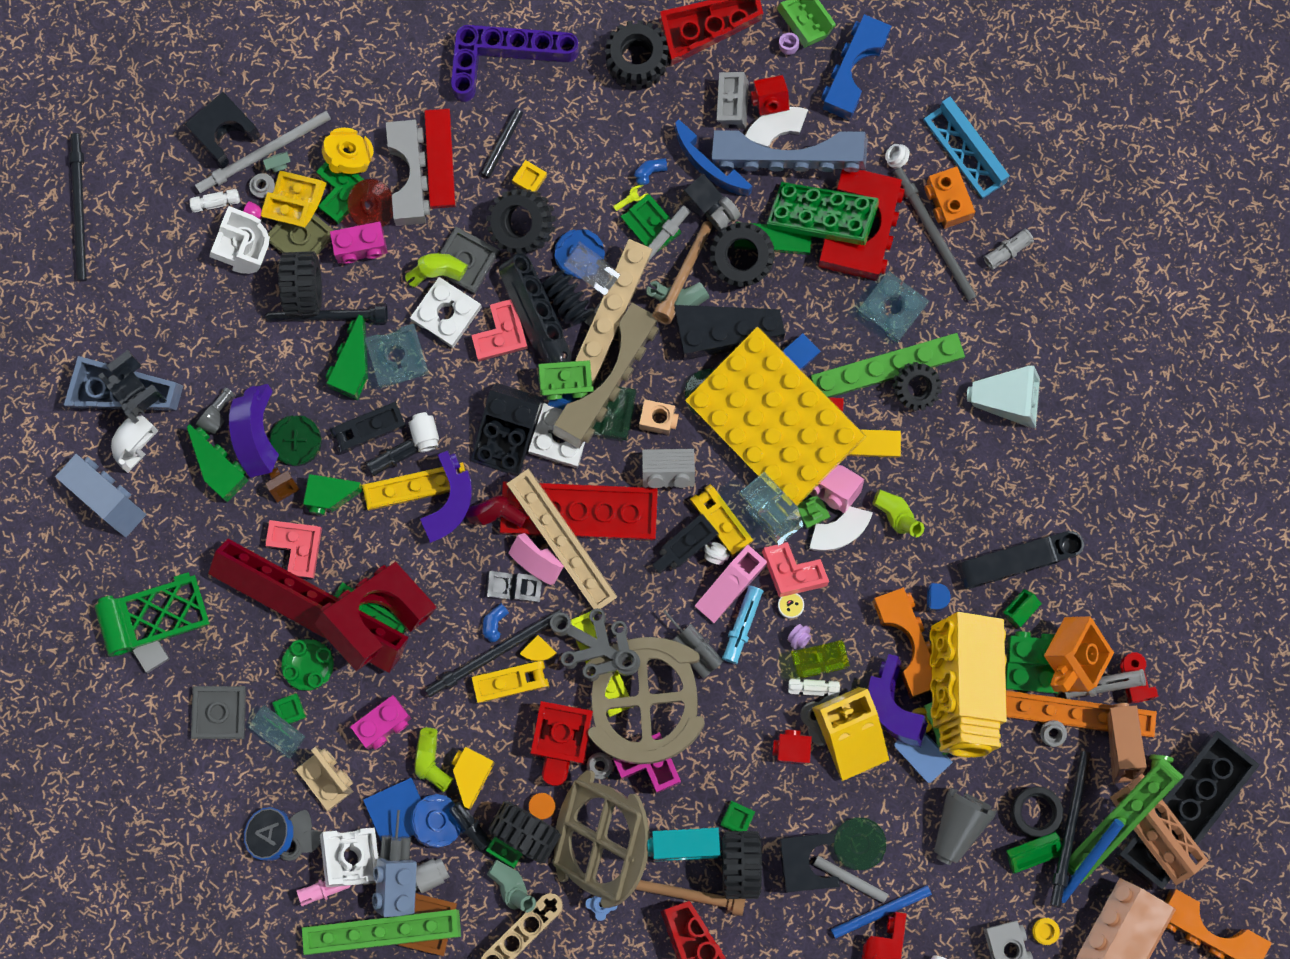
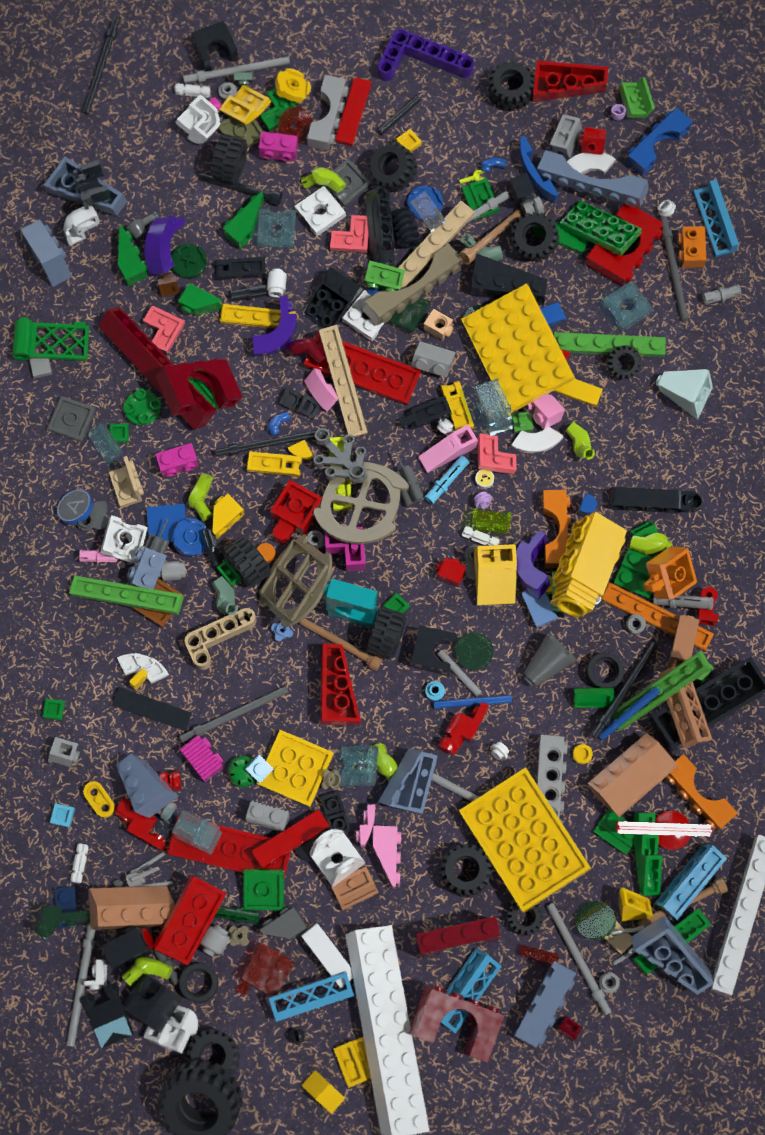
camera: 20 degrees right, 5 degrees down
(837, 915) = (432, 696): none -> medium azure plate
(1038, 623) = (650, 543): none -> lime arm

